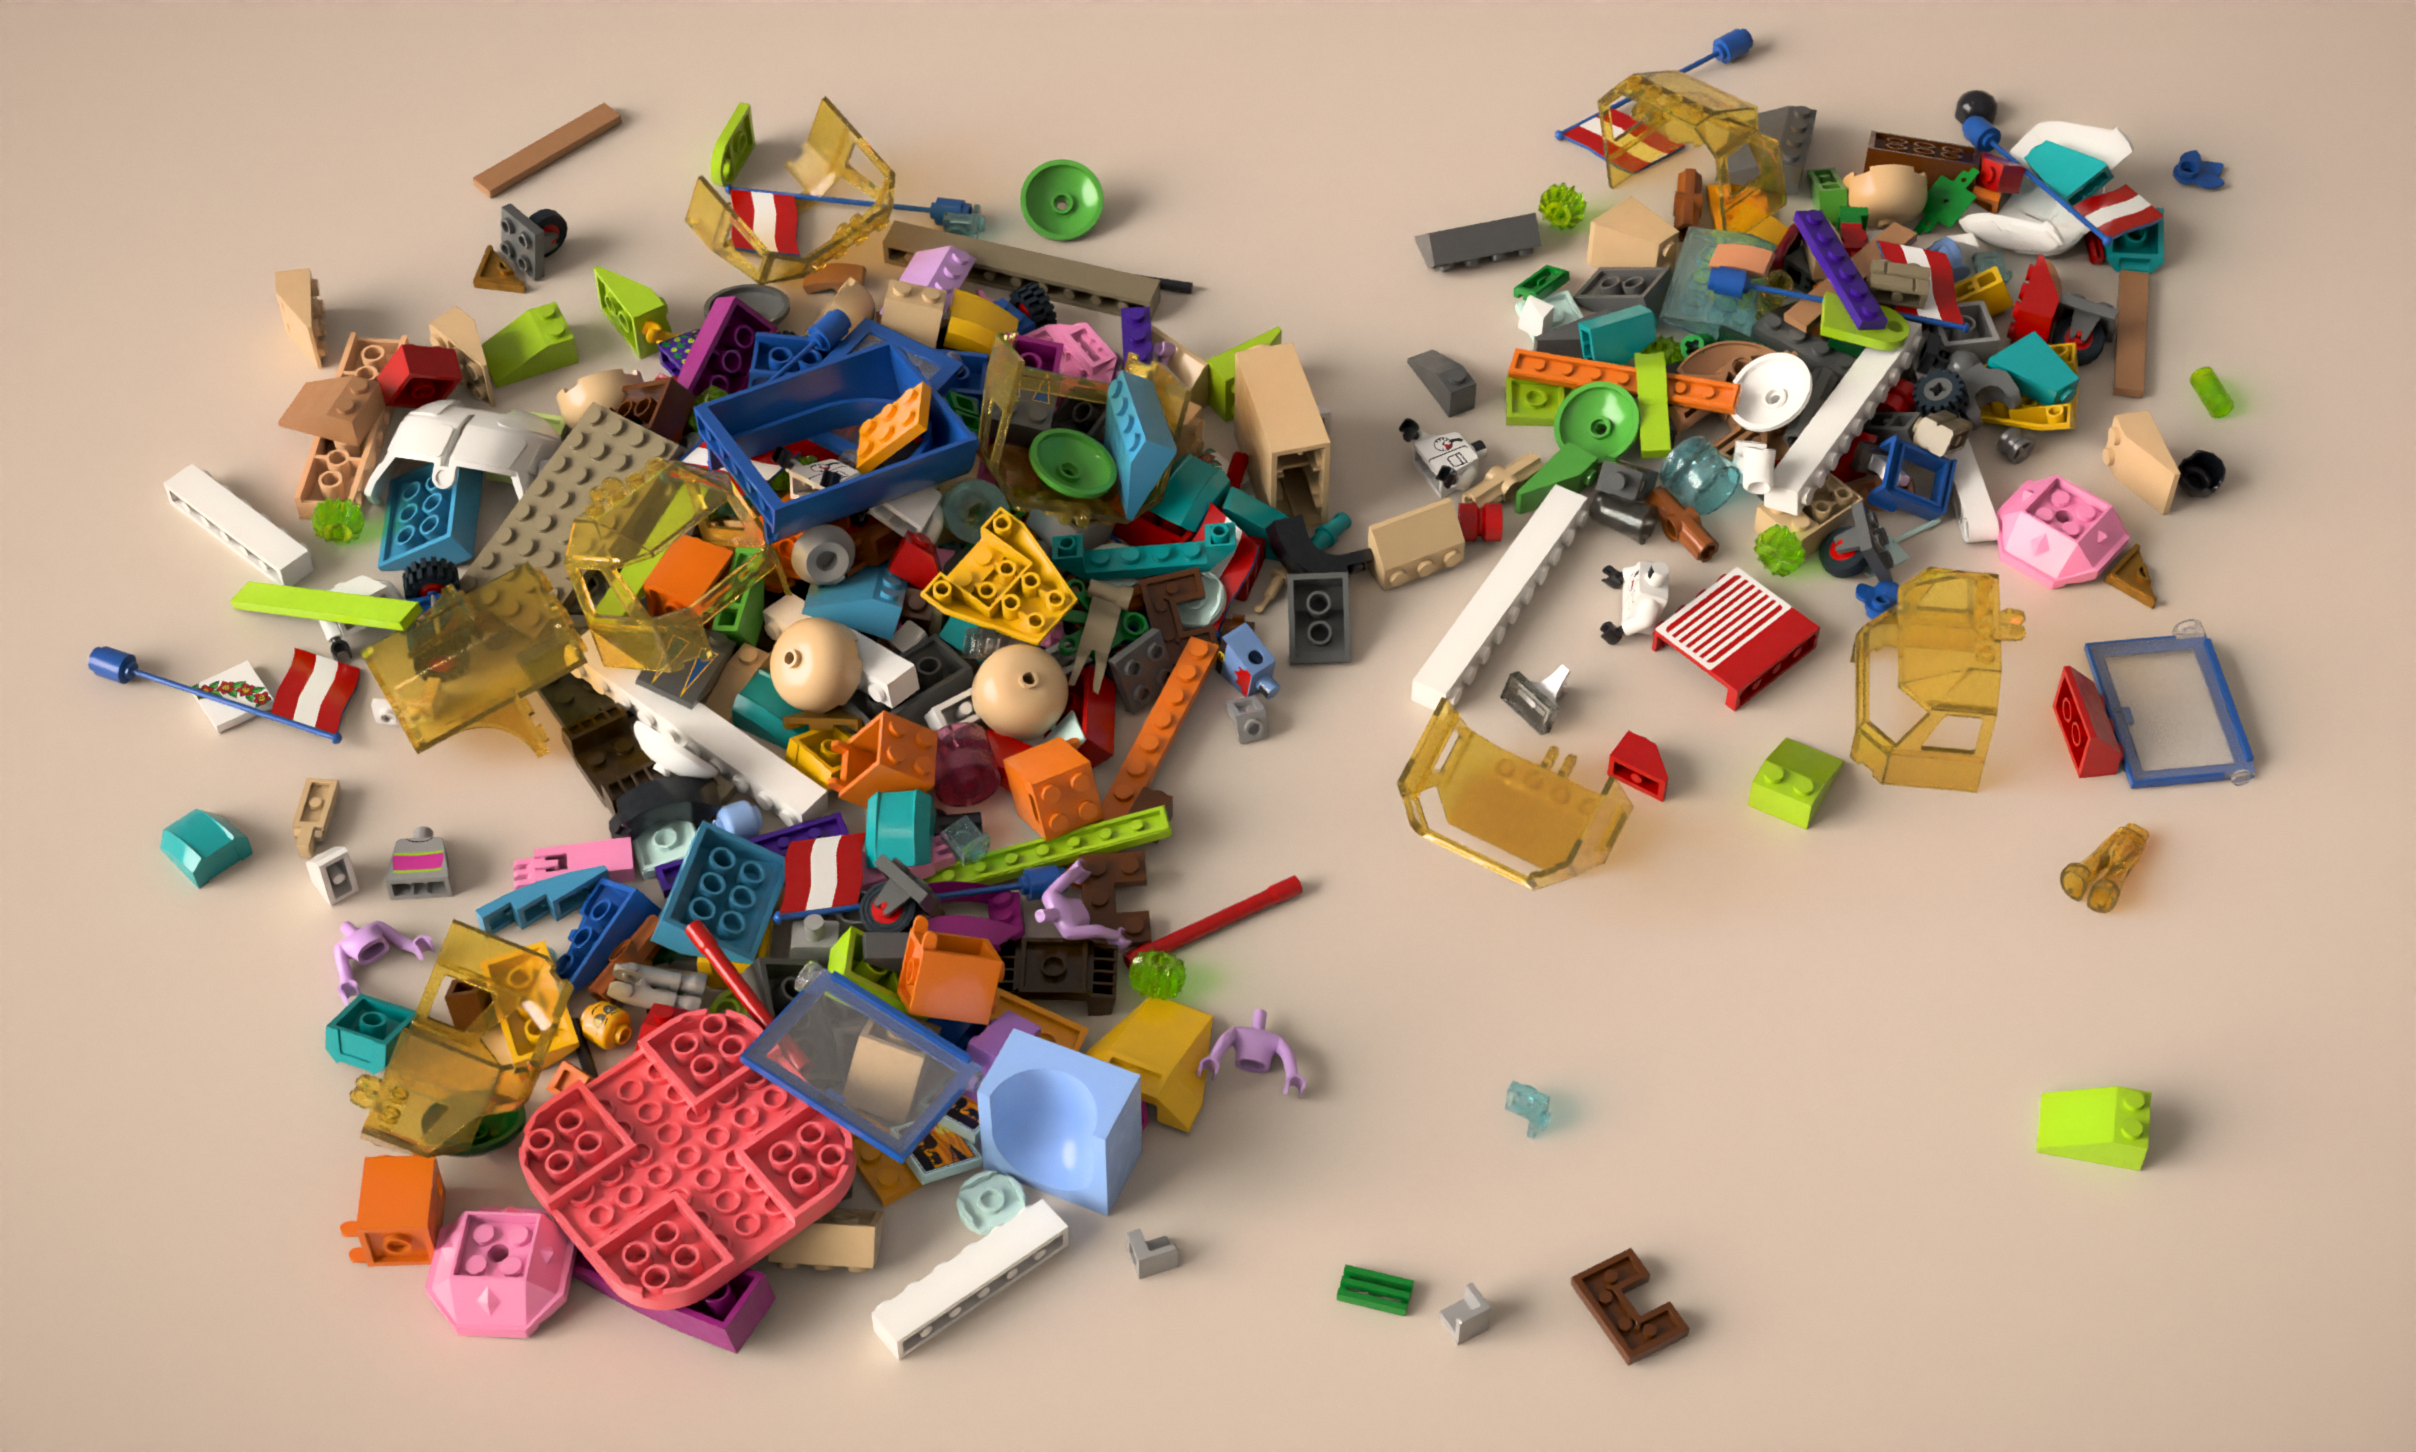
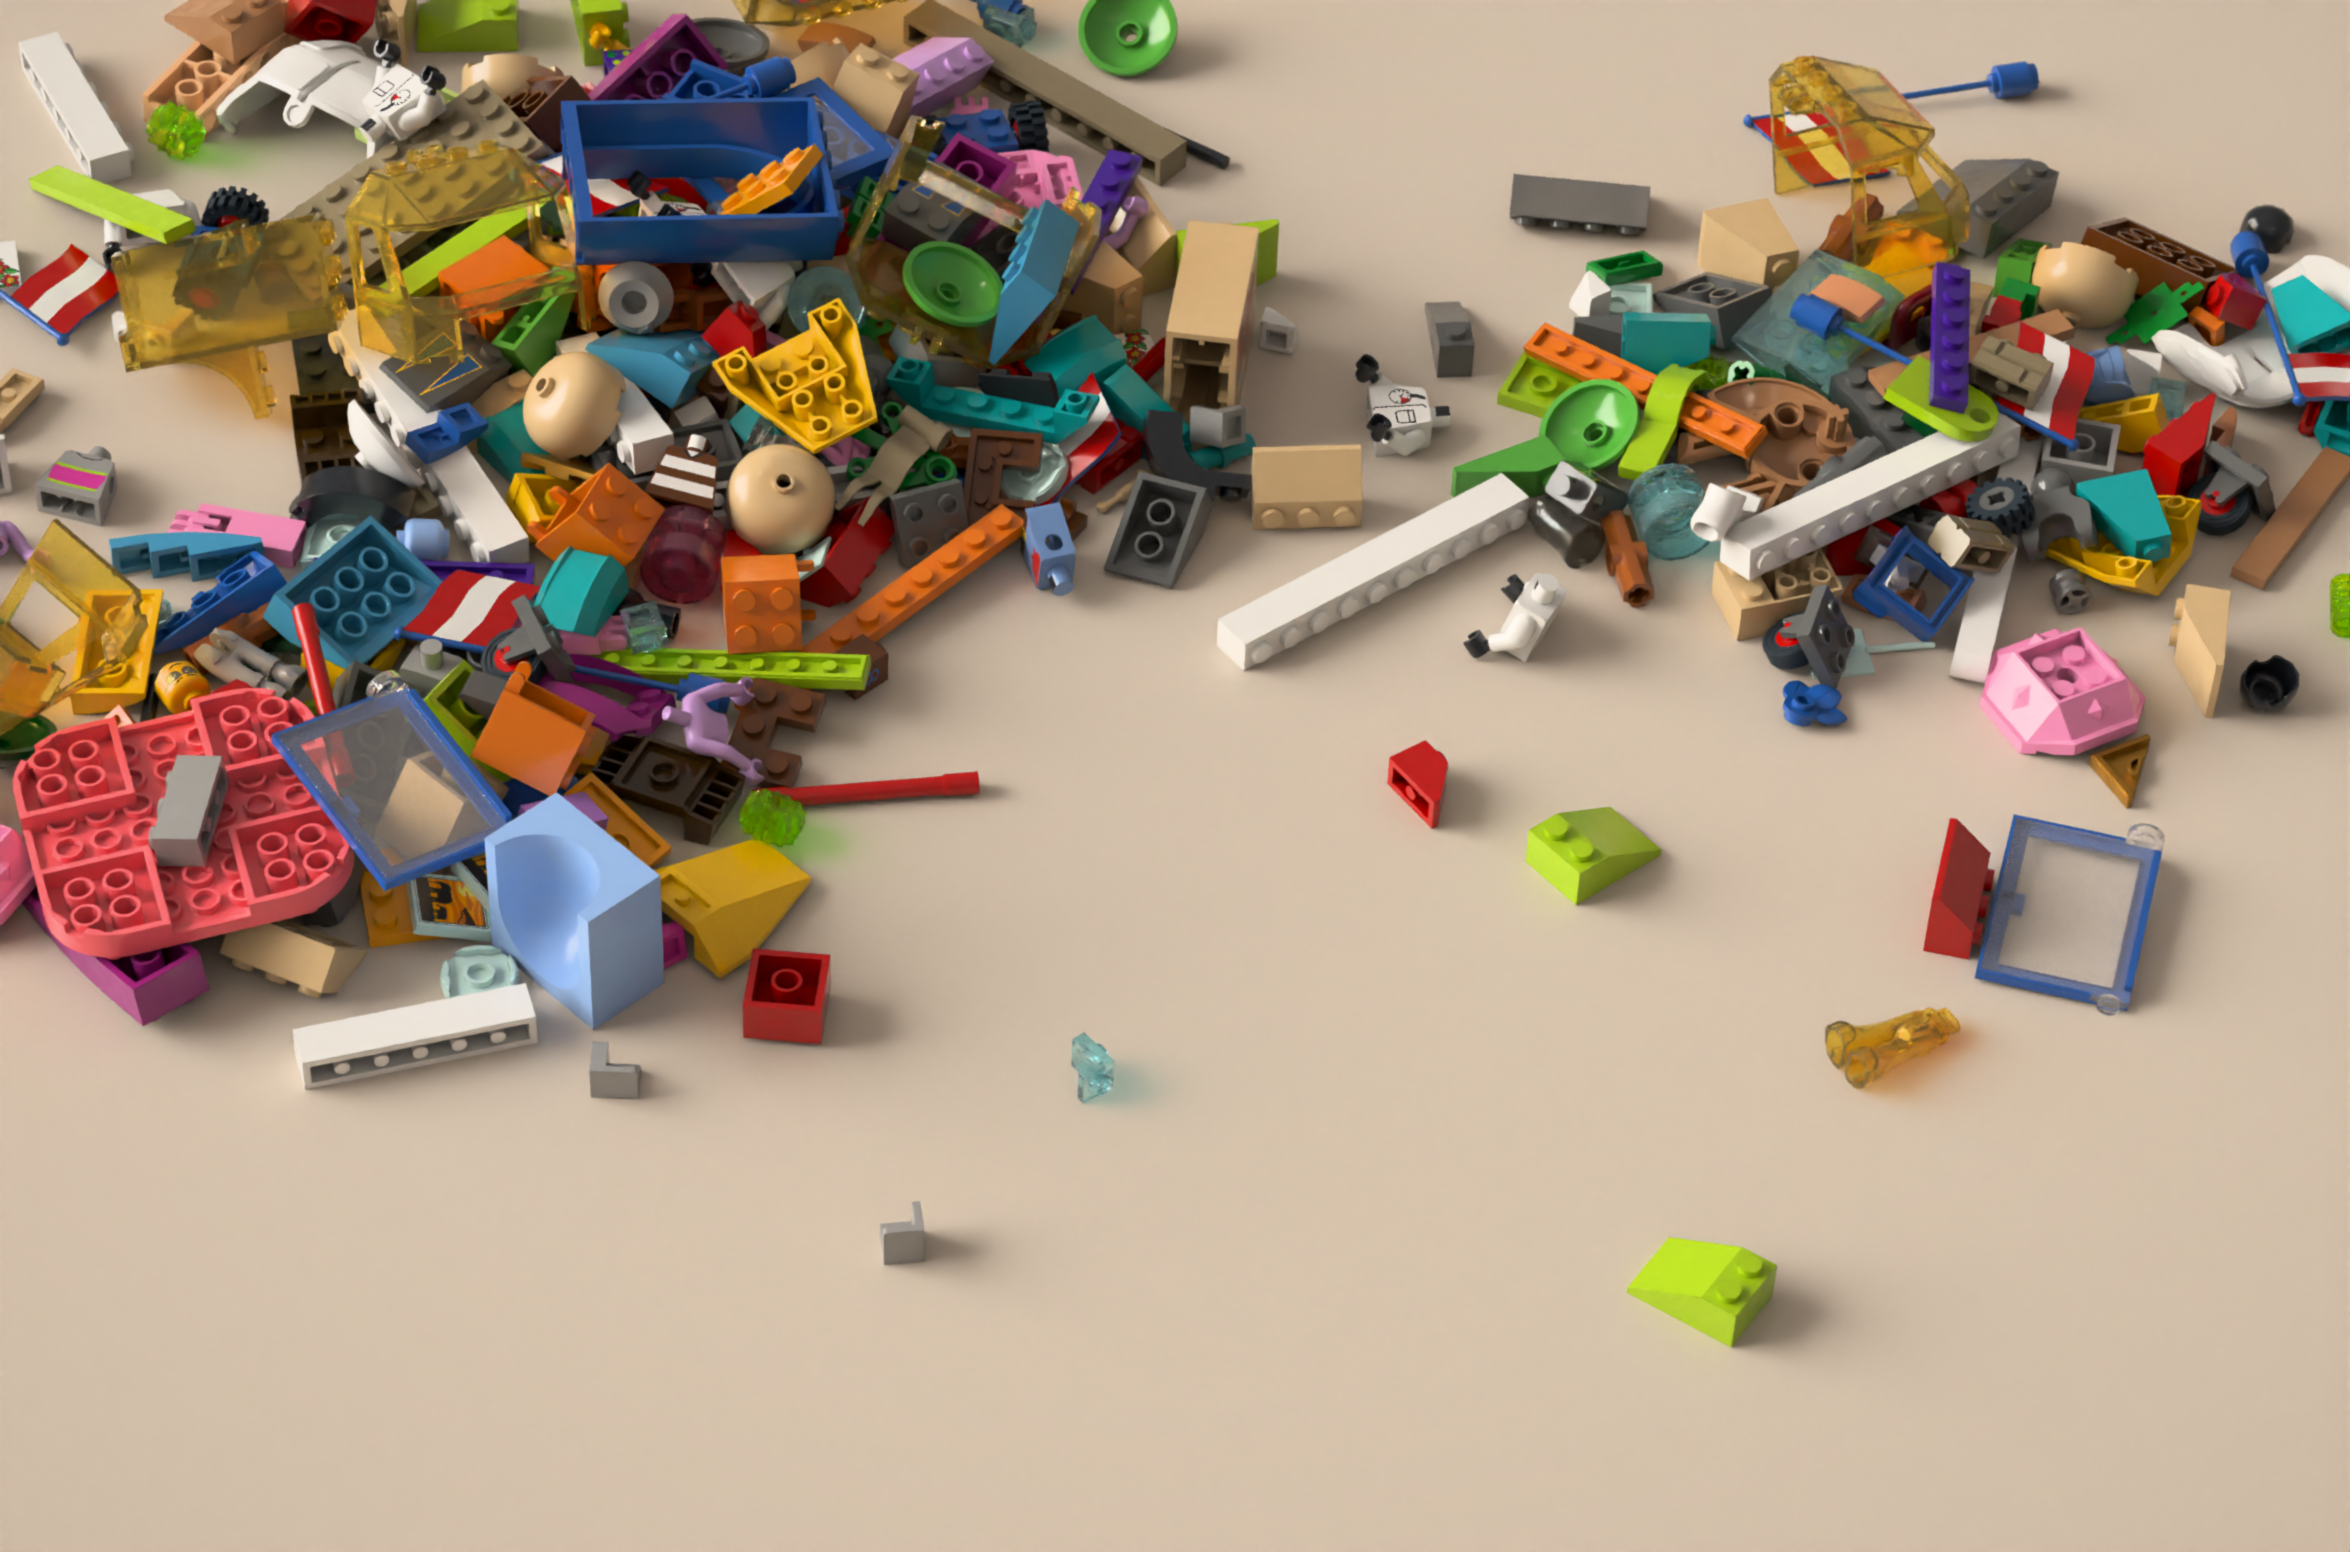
camera: 20 degrees right, 5 degrees down
(430, 520) = (276, 158): dark azure slope -> none
(466, 1003) = (50, 621): reddish brown brick -> none
(532, 440) = (400, 99): none -> white torso
(695, 1147) = (189, 810): none -> light grey brick
(717, 722) = (451, 432): none -> blue slope
(941, 698) = (685, 476): none -> torso
(975, 323) = (946, 104): yellow slope -> none
(1177, 531) = (1037, 389): none -> black piece
(1249, 719) = (1022, 608): light grey bracket -> none
(1255, 1051) = (831, 924): lavender piece -> none
(1258, 1132) = (786, 996): none -> red brick
(1324, 515) = (1218, 426): none -> light grey panel
(1377, 1285) = (830, 1181): green tile -> none
(1481, 521) = (1400, 489): red wheel -> none
(1504, 482) = (1442, 457): tan piece -> none
(1512, 803) = (1240, 758): clear yellow windscreen -> none
(1536, 700) = (1349, 683): clear smoke piece -> none
(1562, 206) = (1695, 191): clear neon green gear -> none
(1603, 1293) = (1066, 1308): reddish brown plate -> none
(1739, 635) = (1616, 689): panel -> none
(1769, 301) = (1883, 333): clear yellow animal -> none
(1772, 391) = (1796, 444): white dish -> none
(1779, 550) = (1717, 615): clear neon green gear -> none
(1933, 355) = (2021, 464): black tile -> none
(1947, 664) = (1781, 766): clear yellow windscreen -> none

